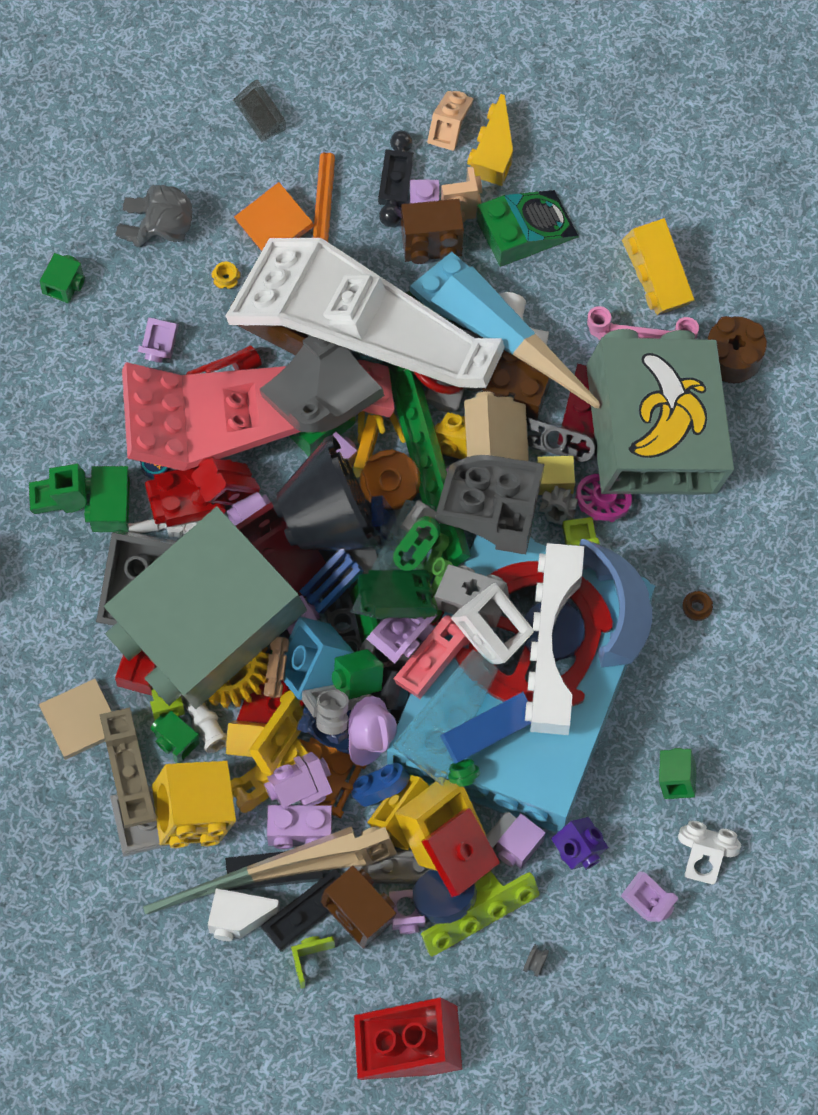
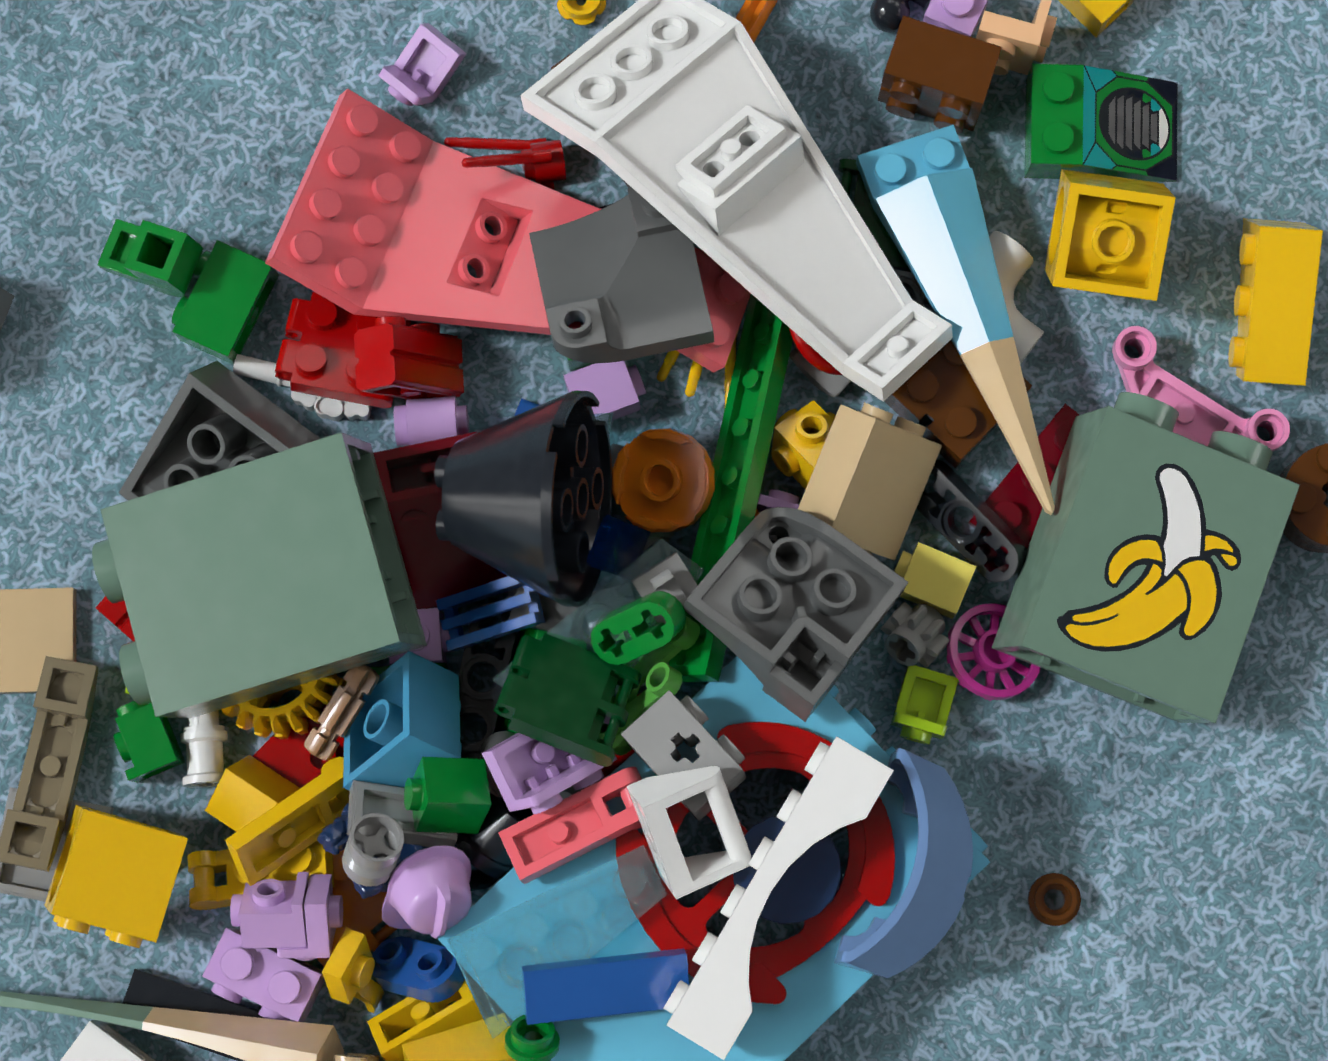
camera: 30 degrees right, 15 degrees up
(346, 799) = (350, 971): none -> yellow plate
(366, 445) = (658, 399): light orange tile -> none
(558, 266) = (1109, 234): none -> yellow brick

